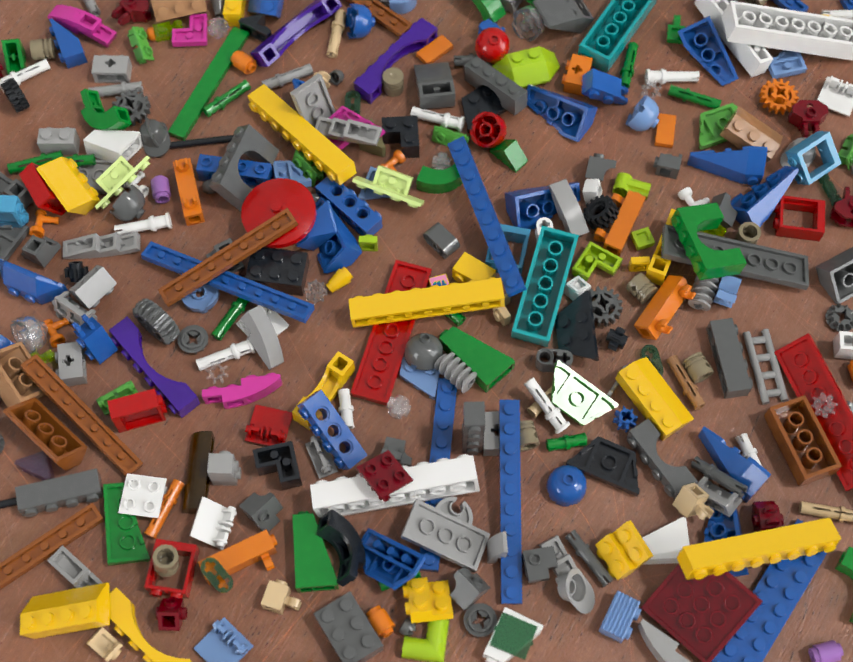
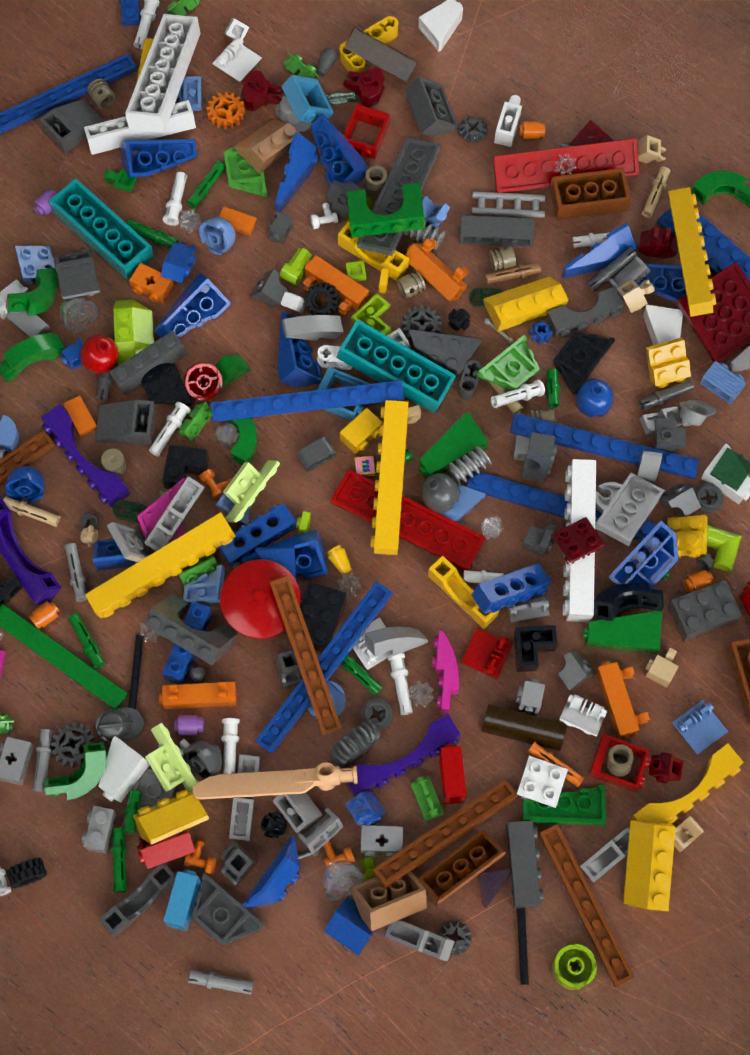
camera: 80 degrees left, 5 degrees up
(108, 259) = (274, 782): none -> light nougat piece
(213, 578) = (636, 713): clear green beam -> none

